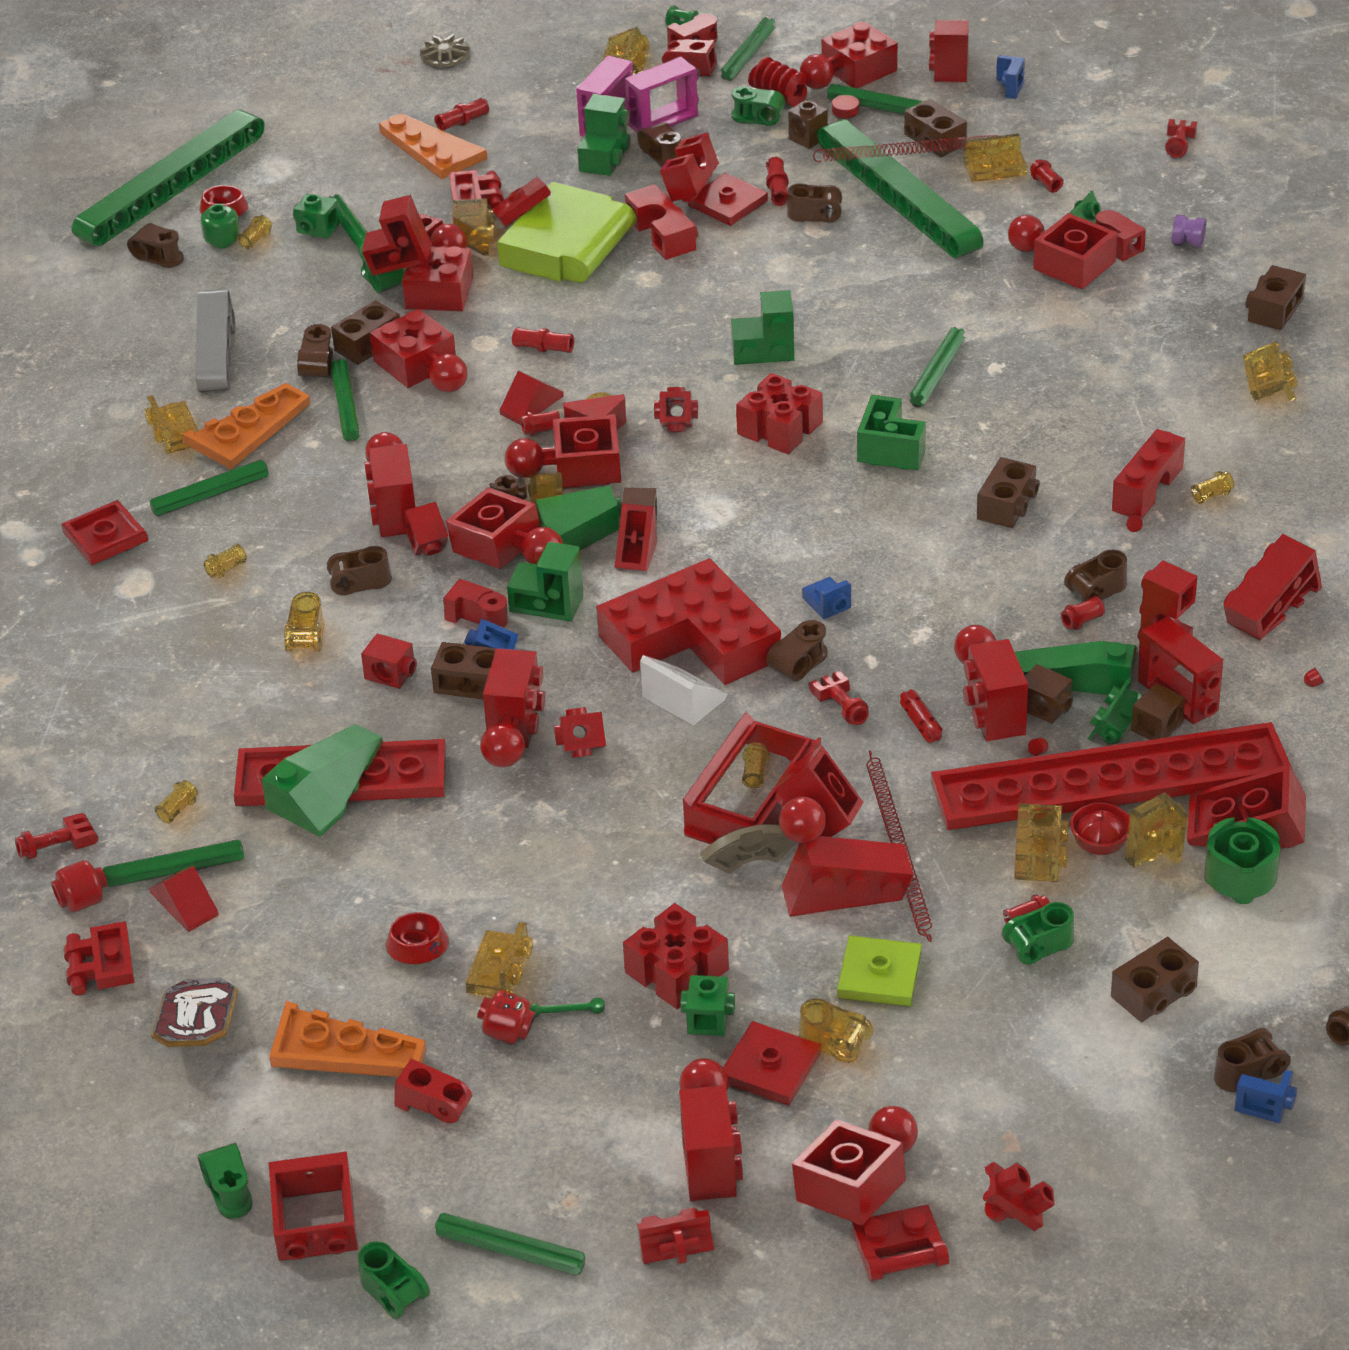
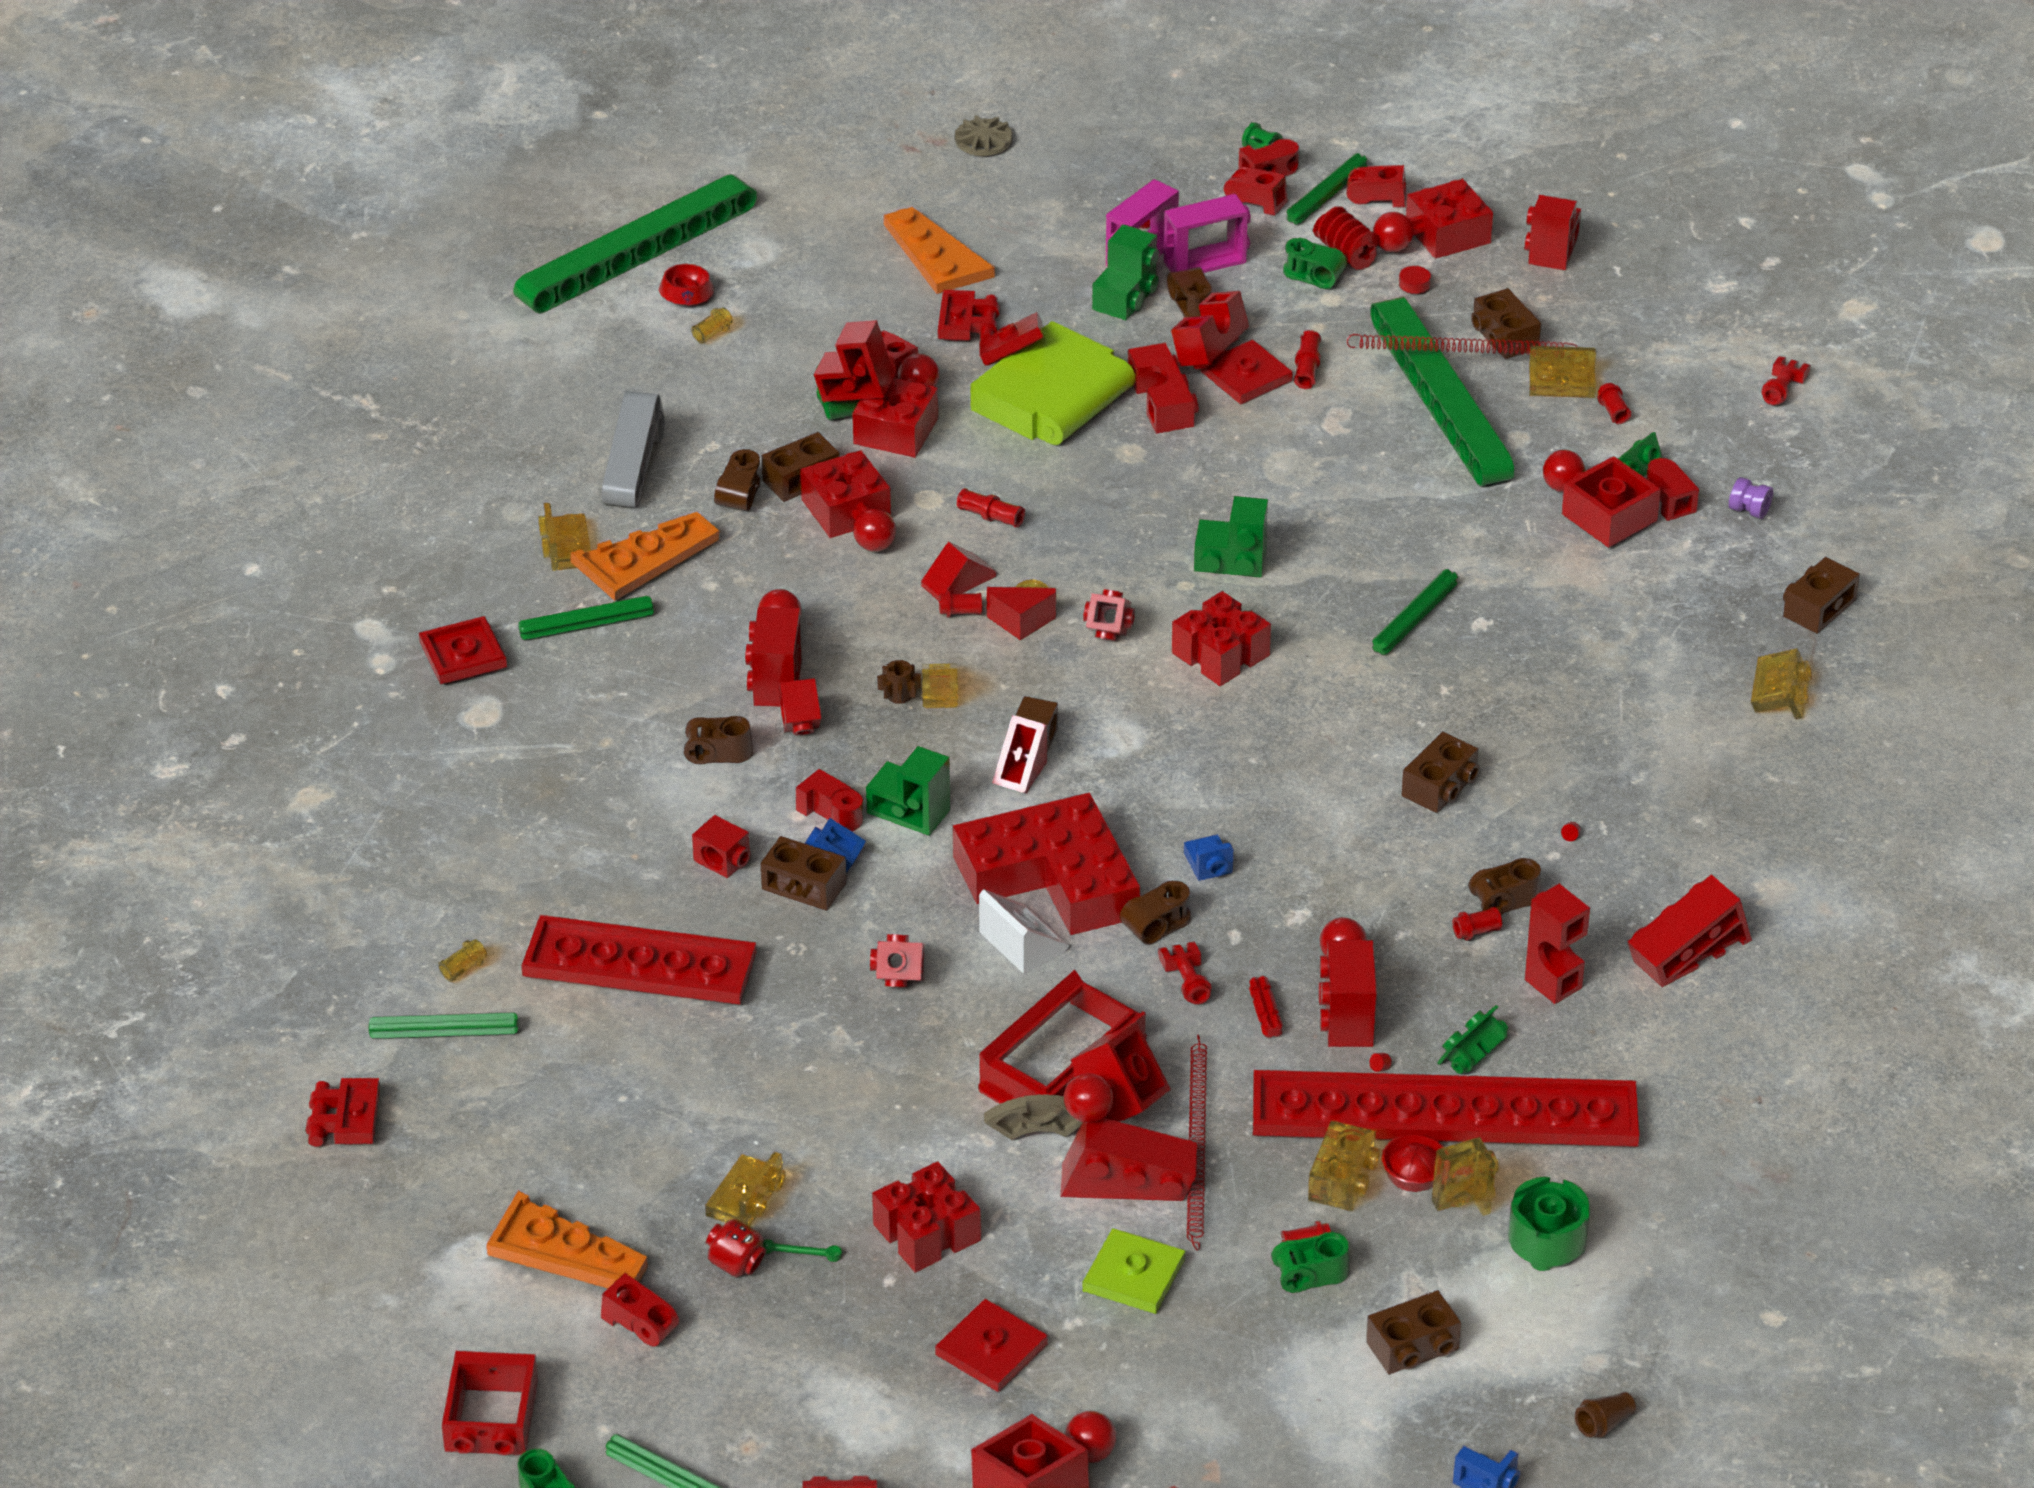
camera: 10 degrees right, 0 degrees up
(75, 829) = (354, 972): red hinge -> none
(79, 886) = (341, 1032): red head -> none
(156, 246) = (600, 324): reddish brown piece -> none
(185, 898) = (446, 1065): red slope -> none
(195, 1012) = (424, 1185): shield -> none
(218, 564) = (580, 704): clear yellow pin -> none
(220, 226) = (674, 313): green head -> none
(227, 1180) = (413, 1361): green piece -> none
(304, 623) = (644, 789): clear yellow piece -> none
(316, 215) = (783, 318): green brick -> none
(318, 781) = (610, 964): green wedge -> none
(345, 400) = (757, 541): green axle -> none
(350, 222) = (817, 325): green axle -> none
(416, 938) = (668, 1150): red hat -> none
(461, 114) = (979, 219): red pin -> none
(476, 222) = (954, 352): clear yellow slope -> none
(499, 528) = (876, 720): red brick -> none
(511, 706) = (832, 919): red brick -> none
(581, 515) = (966, 721): green slope -> none
(583, 452) = (992, 650): red brick -> none
(629, 46) = (1189, 170): clear yellow bracket -> none
(707, 997) = (942, 1273): green brick -> none
(708, 1131) = (899, 1403): red brick -> none
(755, 759) = (1075, 1021): clear yellow pin -> none
(790, 38) = (1377, 184): none -> red leg
(805, 121) = (1359, 292): reddish brown brick -> none
(812, 201) = (1337, 394): reddish brown piece -> none
(834, 1029) = (1065, 1322): clear yellow piece -> none
(873, 99) = (1448, 275): green axle -> none
(888, 438) = (1329, 686): green brick -> none
(1011, 74) = (1615, 271): blue bracket -> none
(1048, 694) = (1404, 1006): reddish brown brick -> none
(1090, 665) = (1449, 982): green wedge -> none
(1155, 462) = (1617, 763): red arch -> none
(1157, 713) = (1517, 1049): reddish brown brick -> none
(1169, 641) = (1555, 1006): red window -> none
(1212, 487) = (1678, 803): clear yellow pin -> none
(1249, 1057) = (1483, 1431): reddish brown piece -> none
(1267, 796) = (1599, 1164): red slope -> none
(1313, 678) = (1703, 1039): red piece -> none

